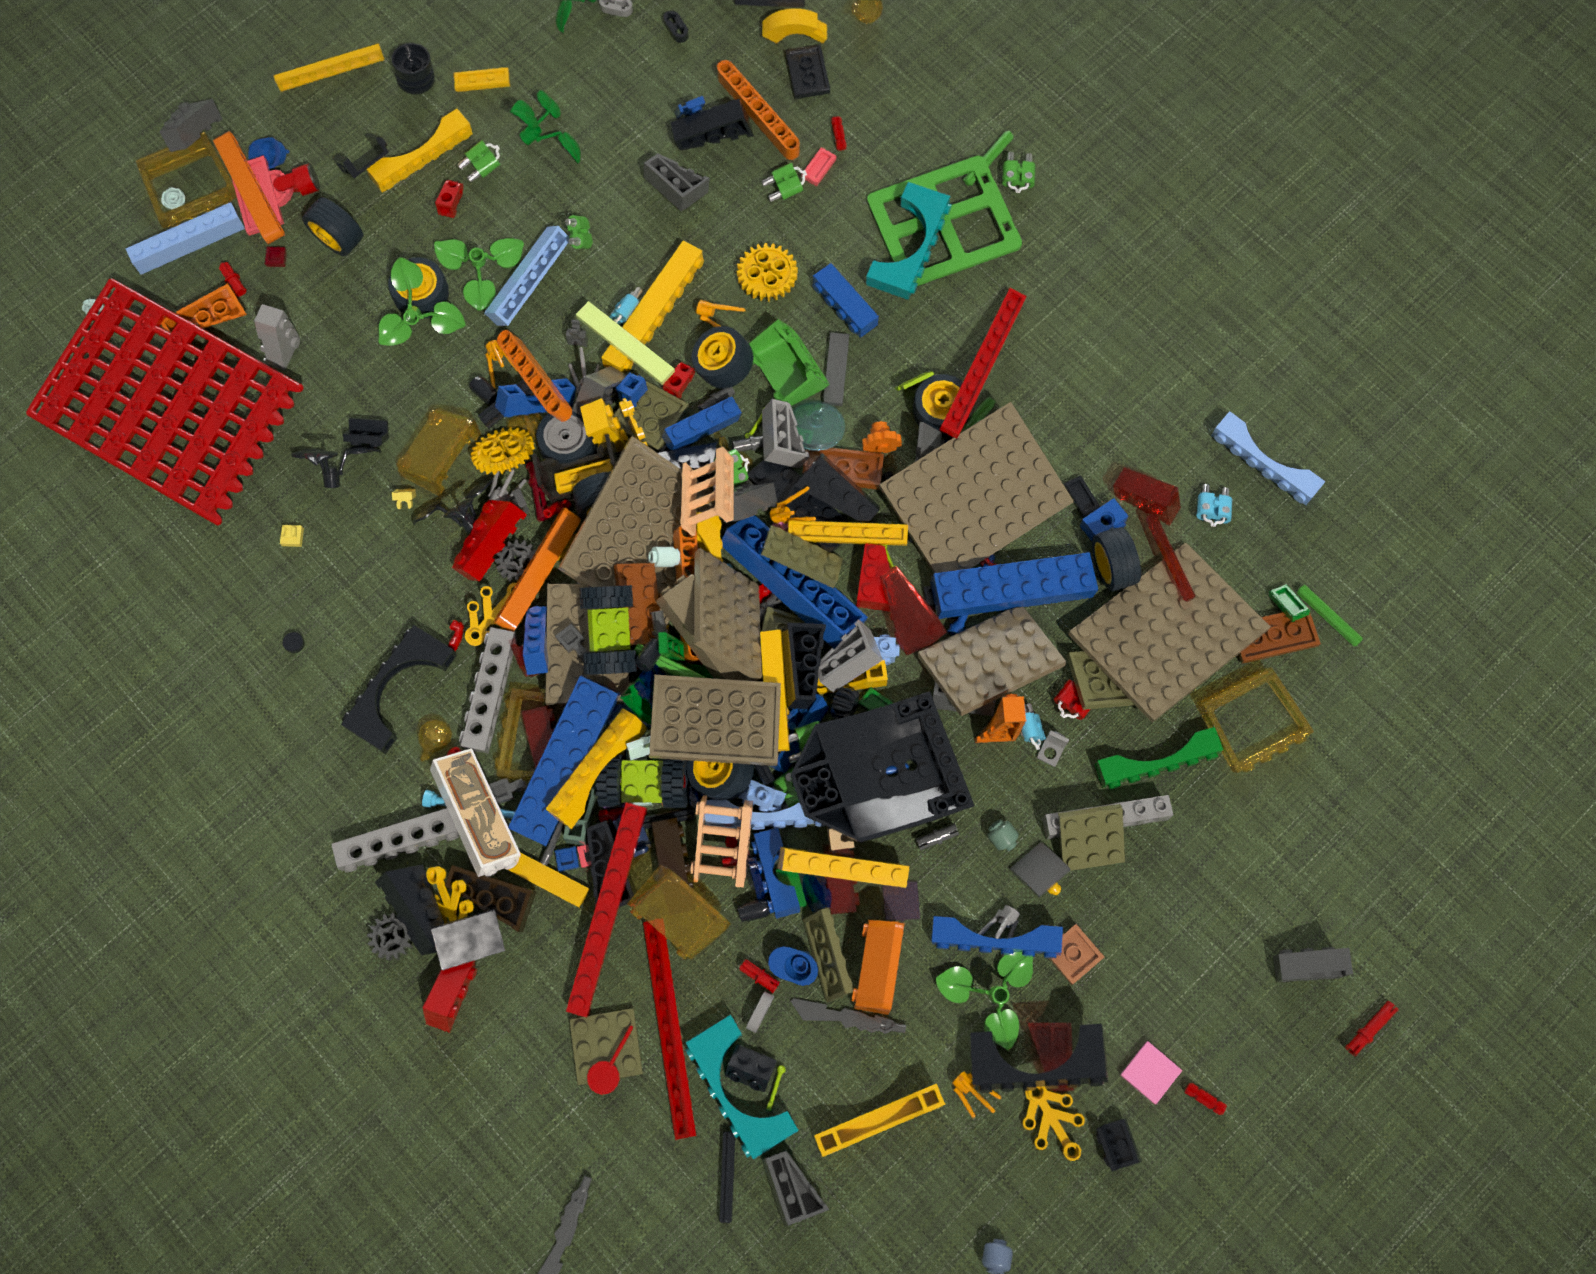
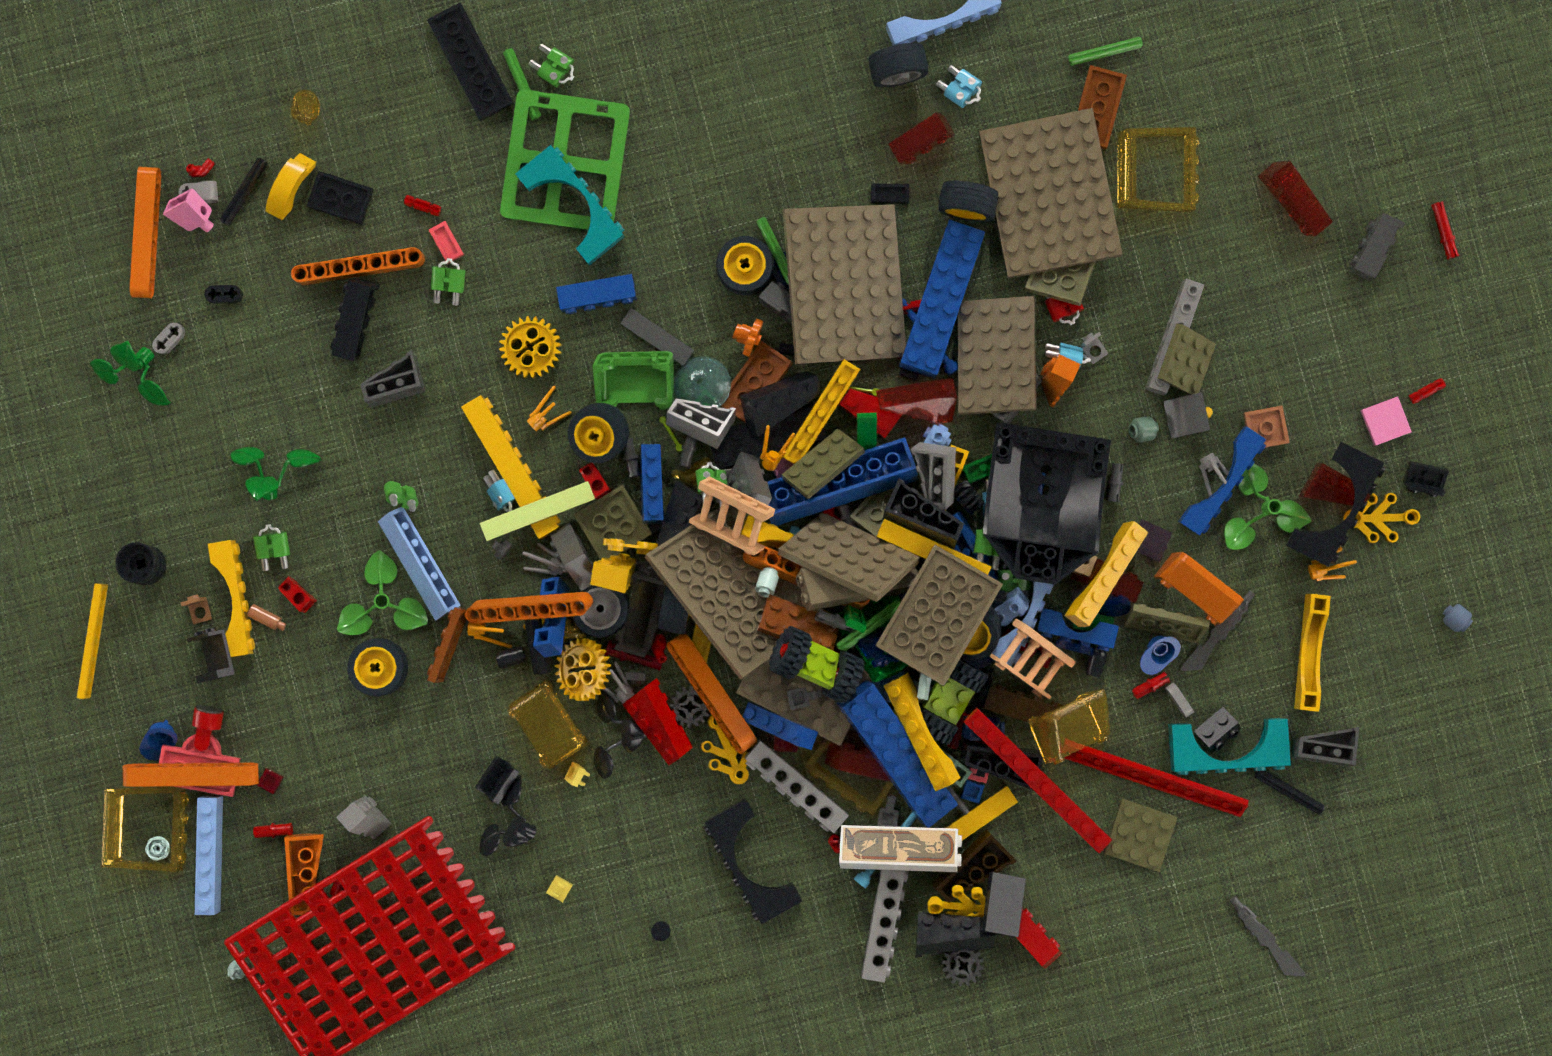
camera: 60 degrees left, 15 degrees up
(188, 122) = (89, 800): dark grey wedge -> none
(332, 226) = (276, 716): black wheel -> none
(393, 329) = (405, 708): bright green plant -> none
(402, 127) = (193, 603): none -> medium nougat bracket
(417, 185) = (266, 618): none -> nougat cylinder
(433, 737) = (811, 851): clear yellow hat -> none
(457, 637) = (723, 786): red arm -> none
(465, 331) = (448, 645): none -> dark orange plate
(481, 79) = (181, 504): yellow tile -> none
(568, 479) = (648, 611): yellow tile -> none
(603, 1075) = (1164, 848): red piece -> none
(632, 388) = (579, 527): blue brick -> none
(648, 656) = (855, 641): black piece -> none
(690, 107) = (325, 327): blue plate -> none
(781, 1069) = (1230, 706): lime hinge -> none
(854, 577) = (867, 430): none -> green tile
(914, 380) = (709, 274): lime piece -> none
(981, 110) = (470, 61): none -> black plate
(983, 363) = (728, 208): red plate -> none
(1110, 512) = (921, 177): blue brick -> none
(1117, 769) = (1156, 228): green arch -> none
(1170, 557) = (989, 154): clear red axle -> none
(1198, 436) = (898, 65): none -> black wheel
(1289, 603) = (1078, 78): green tile -> none
(1309, 862) = (1295, 197): none -> clear red wedge

